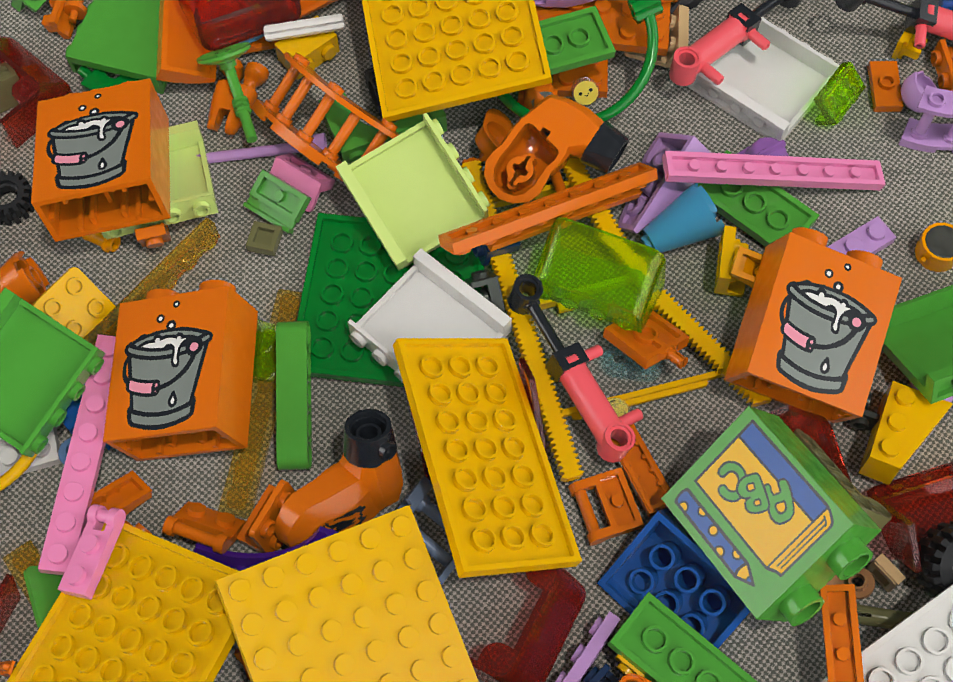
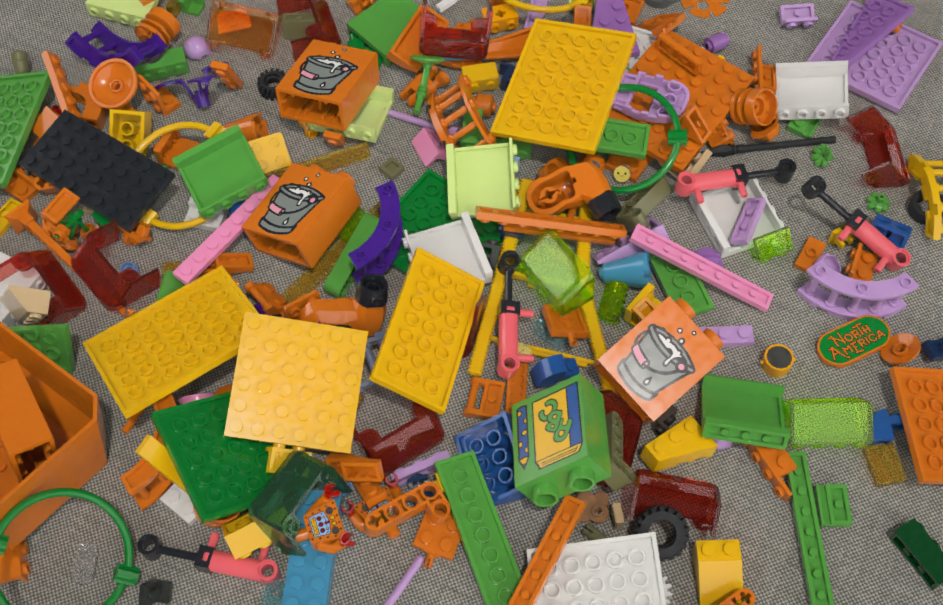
camera: 30 degrees right, 5 degrees down
(92, 551) = (203, 277): bright pink plate -> none
(277, 201) = (411, 152): bright green plate -> none
(304, 27) = (482, 64): white axle -> none
(335, 374) = (384, 244): none -> dark purple fence
(343, 77) = (486, 103): none -> orange head
(350, 32) = (506, 71): none -> dark blue bracket
(640, 124) = (642, 203): none -> olive beam
(676, 414) = (552, 369): none -> blue brick
(688, 277) = (613, 302): none -> clear neon green piece
(789, 78) = (748, 221): none -> lavender plate

